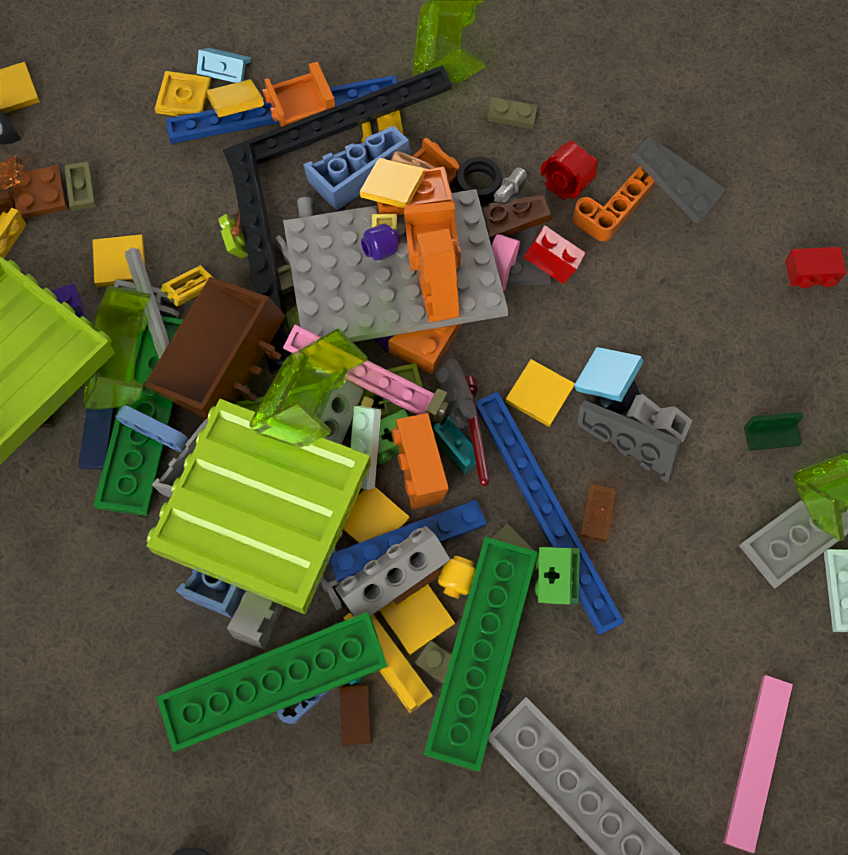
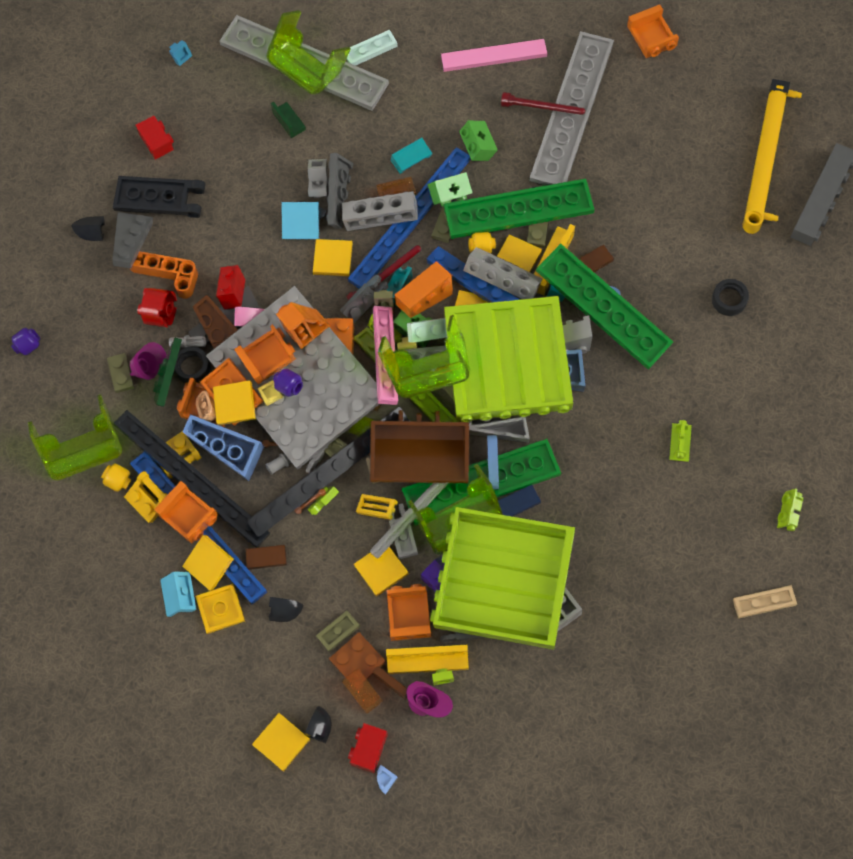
camera: 110 degrees left, 0 degrees up
(38, 678) = (680, 441): none -> lime hinge
(48, 259) = (408, 612): none -> orange panel
(141, 148) = (284, 609): none -> black brick
(208, 159) = (266, 557): none -> reddish brown tile
(346, 73) = (142, 499): none -> yellow plate
(386, 57) = (116, 477): none -> yellow head
(464, 133) = (165, 373): none -> dark green wing
(506, 138) = (147, 361): none -> magenta piece
(553, 503) = (379, 211): none -> light grey brick
(600, 37) = (25, 341): none -> dark purple head
(630, 662) = (478, 140): none -> bright green brick
(639, 556) = (410, 155): none -> teal hinge
(669, 738) = (509, 100): none -> dark red piece
(718, 153) = (89, 228): none -> black brick
(734, 229) = (150, 195): none -> black hinge

